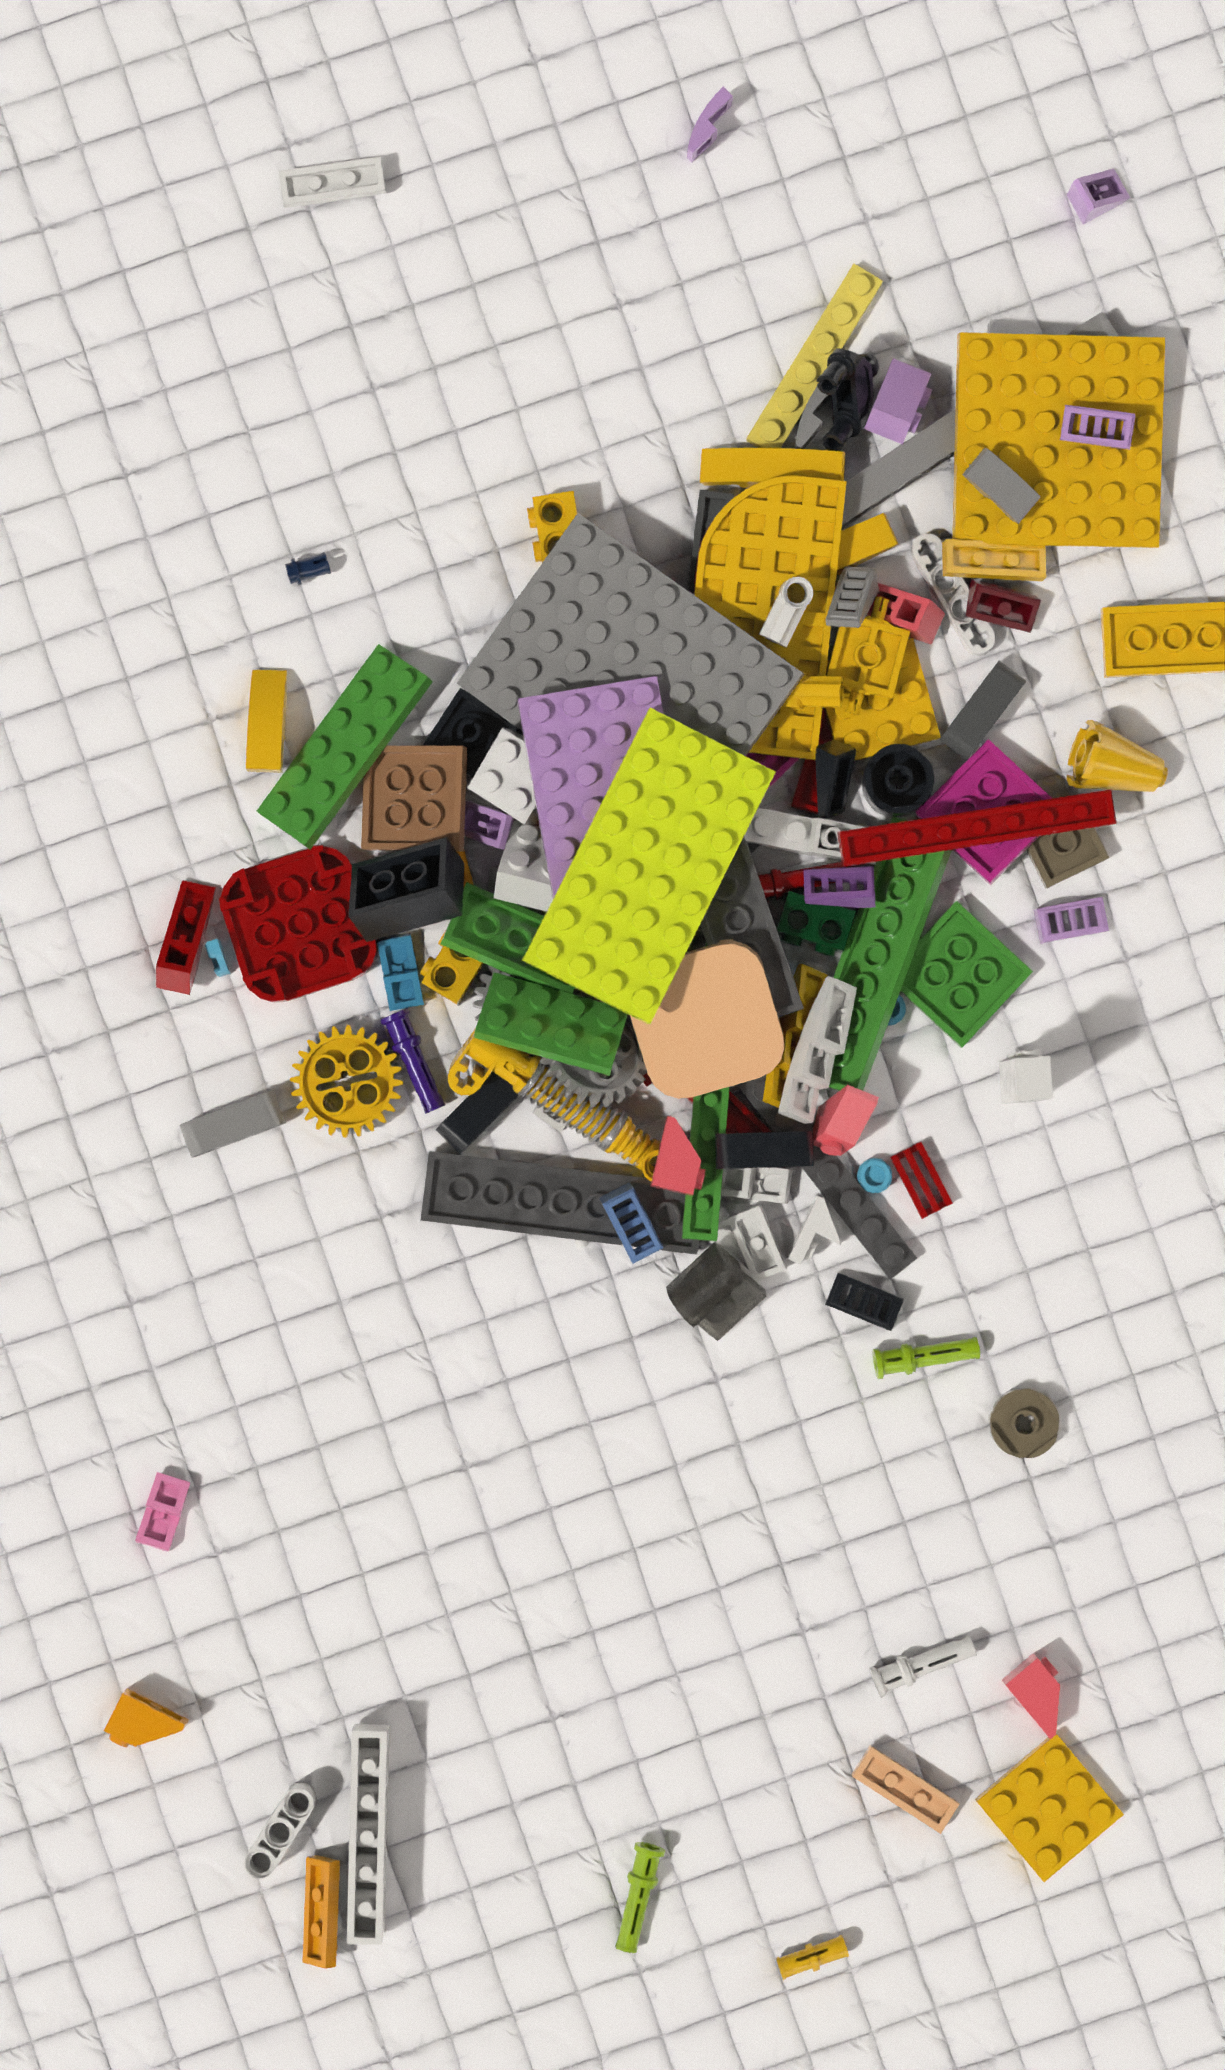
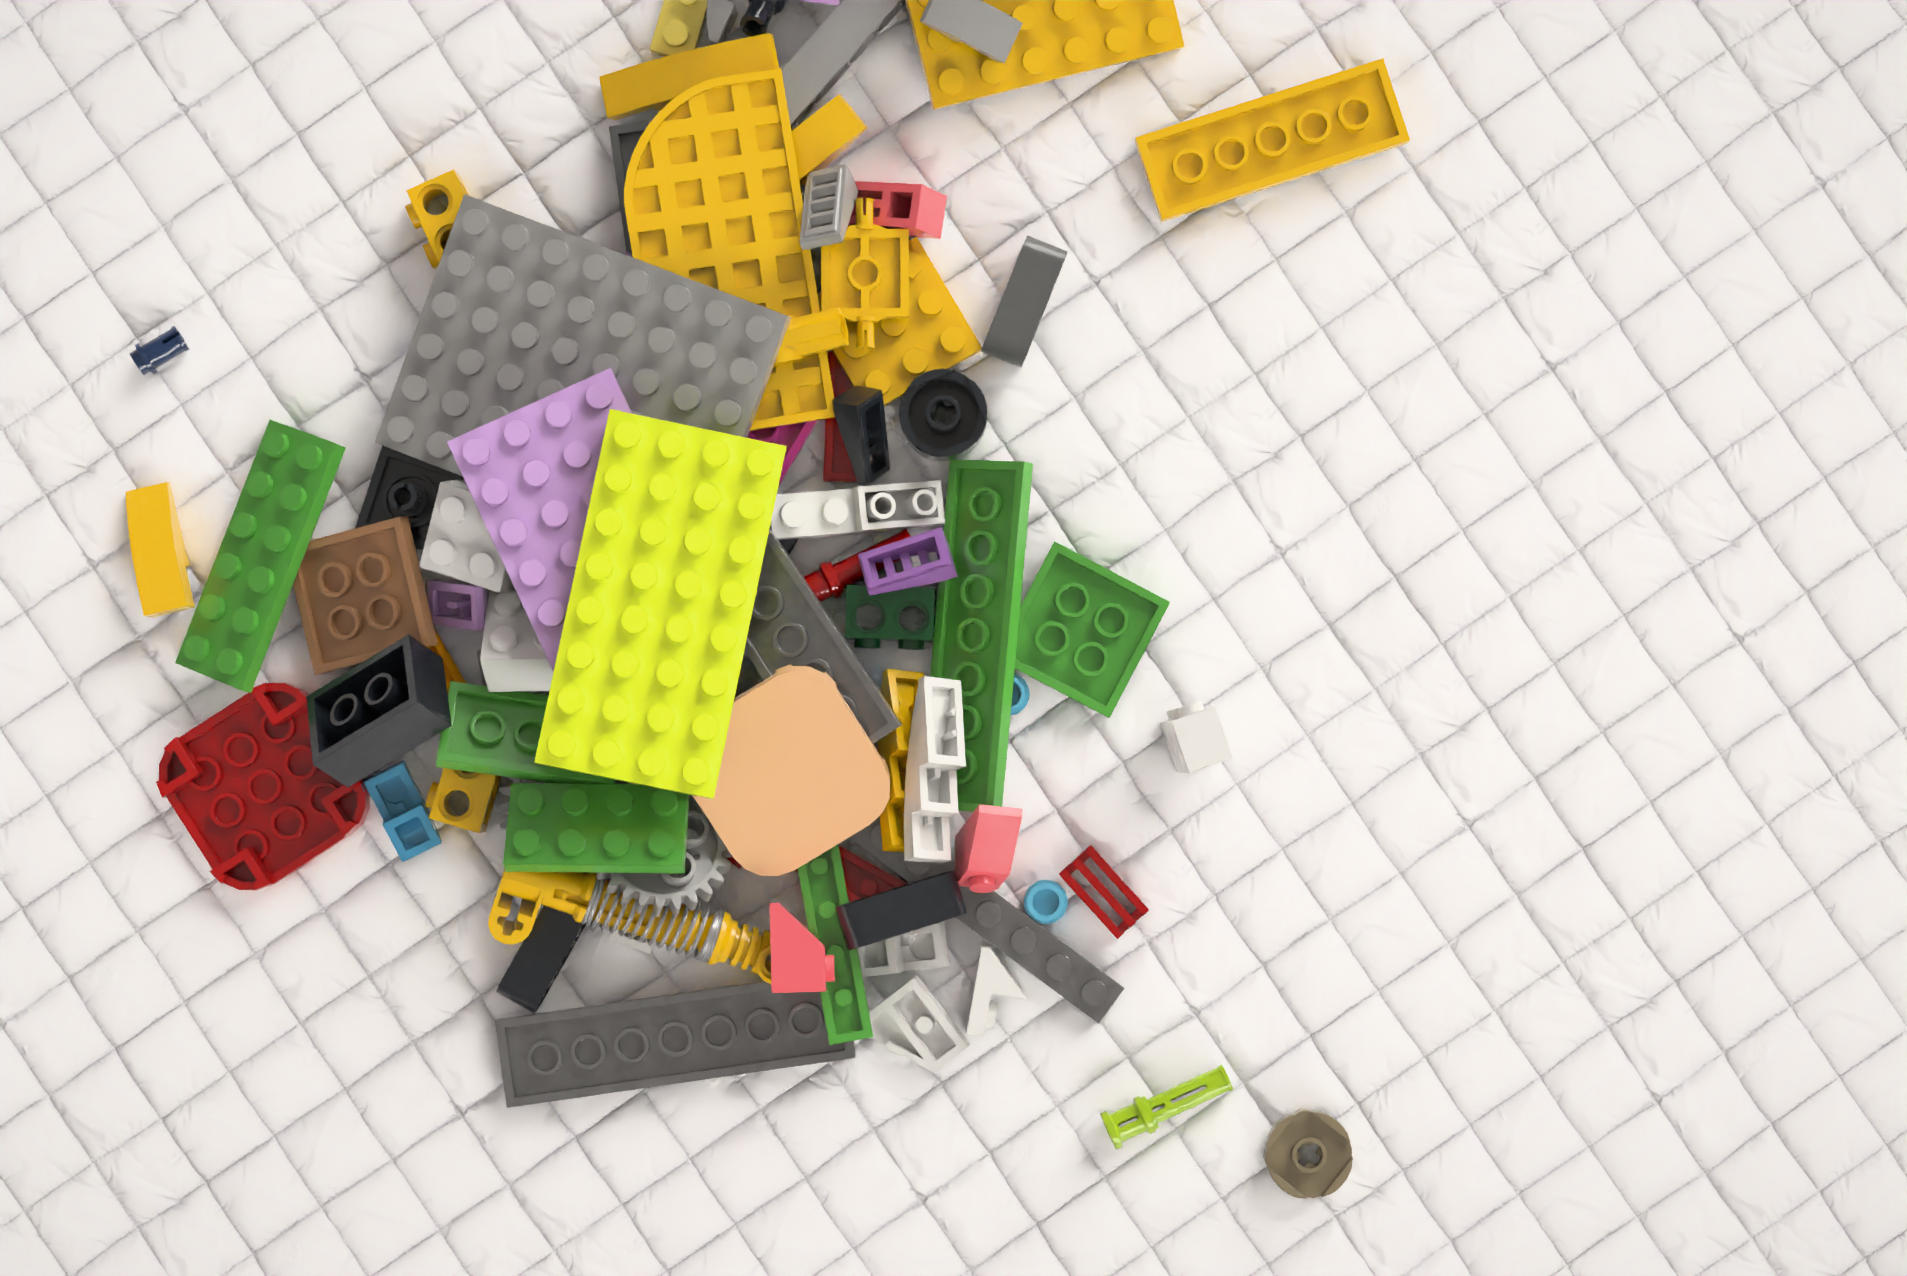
camera: 10 degrees left, 0 degrees up
(184, 938) = (128, 842): red slope -> none
(216, 953) = (171, 846): medium azure tile -> none
(232, 1123) = (247, 1051): light grey beam -> none
(340, 1050) = (390, 996): yellow gear -> none
(407, 1045) = (435, 897): dark purple pin -> none
(618, 1196) = (740, 1012): medium blue slope -> none
(714, 1292) = (888, 1098): clear smoke brick -> none
(785, 614) = (749, 250): white piece -> none
(892, 1312) = (1111, 1066): black slope -> none
(949, 596) = (946, 175): white beam -> none
(976, 828) = (1052, 447): red tile -> none
(985, 782) = (1066, 422): dark pink plate -> none
(993, 561) = (988, 117): yellow plate -> none
(1002, 605) = (1013, 168): dark red slope -> none
(1043, 923) = (1168, 541): lavender slope -> none
(1066, 854) = (1163, 435): dark tan plate -> none
(1111, 761) = (1199, 321): yellow cone -> none

